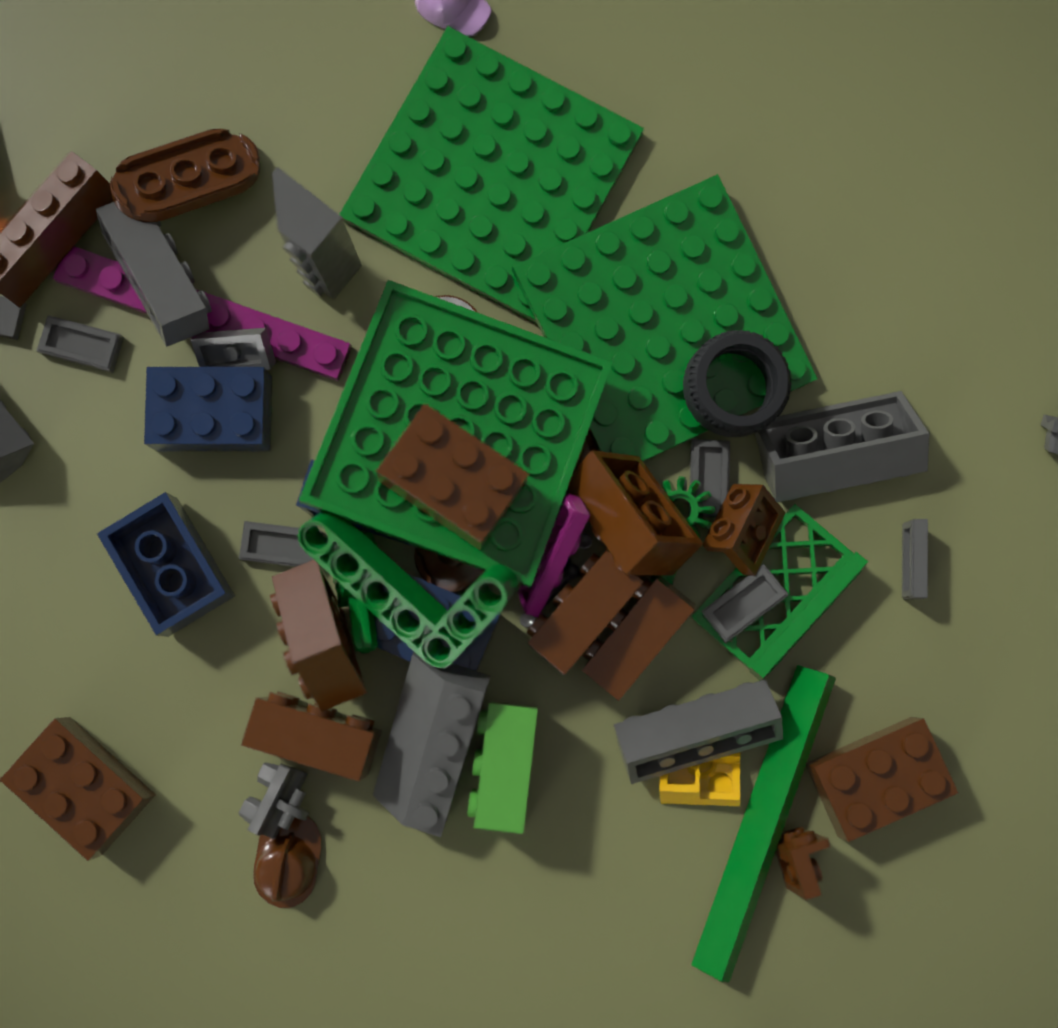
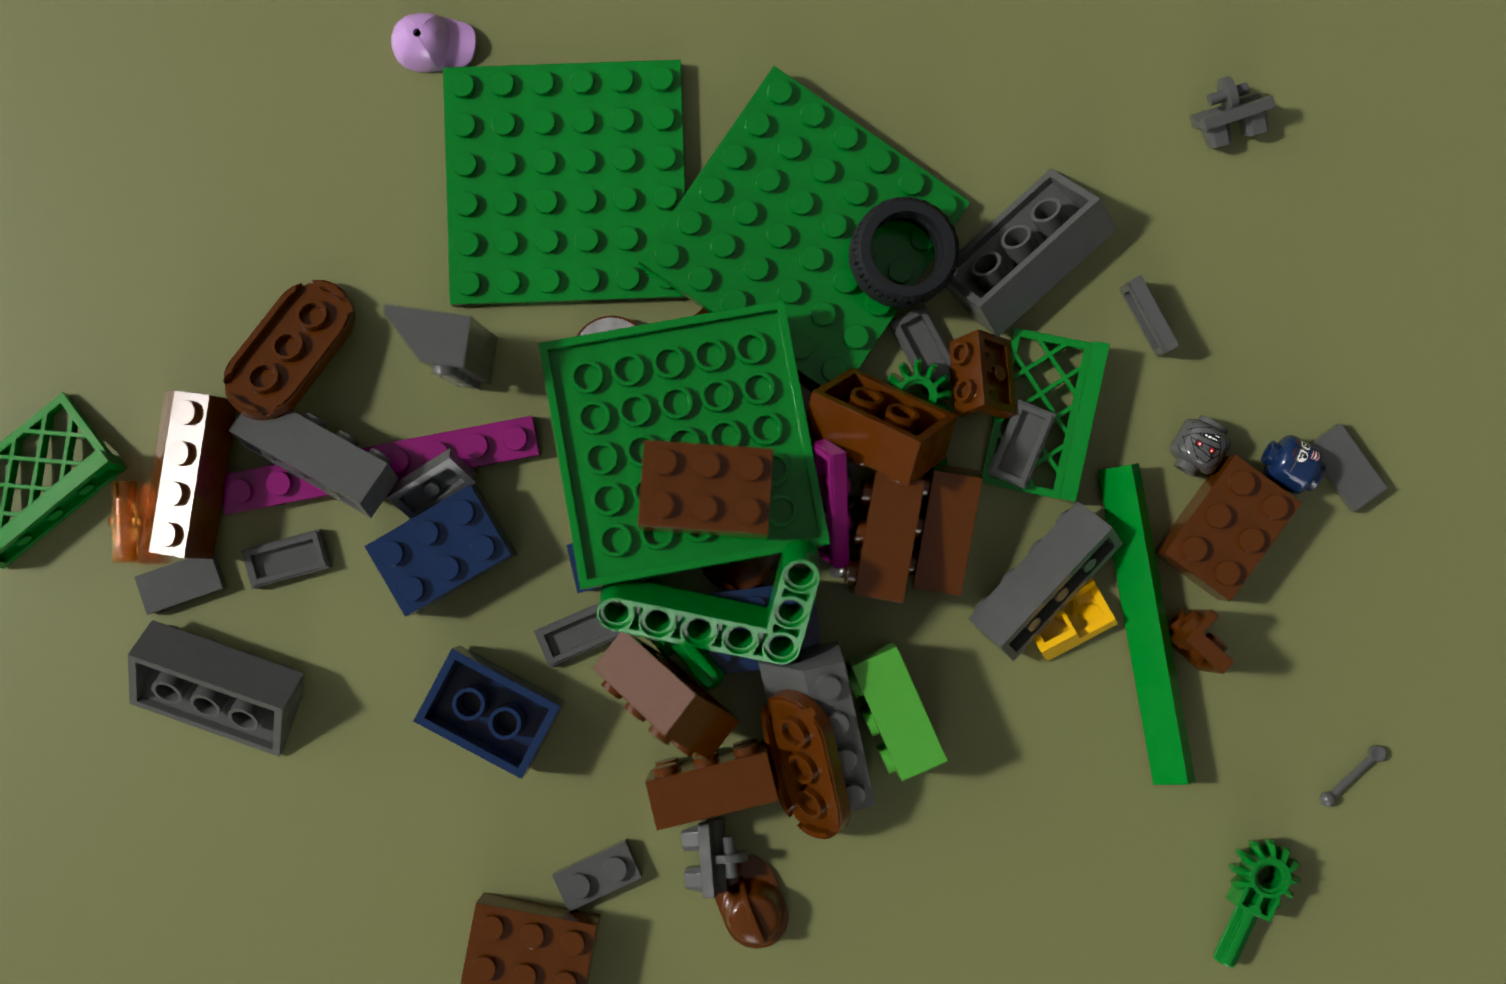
camera: 30 degrees left, 5 degrees up
(172, 758) = (597, 875): none -> dark grey plate
(401, 764) = (805, 763): none -> reddish brown tile
(896, 695) = (1200, 446): none -> dark grey head
(969, 757) = (1293, 464): none -> dark blue head
(1013, 788) = (1348, 468): none -> dark grey tile

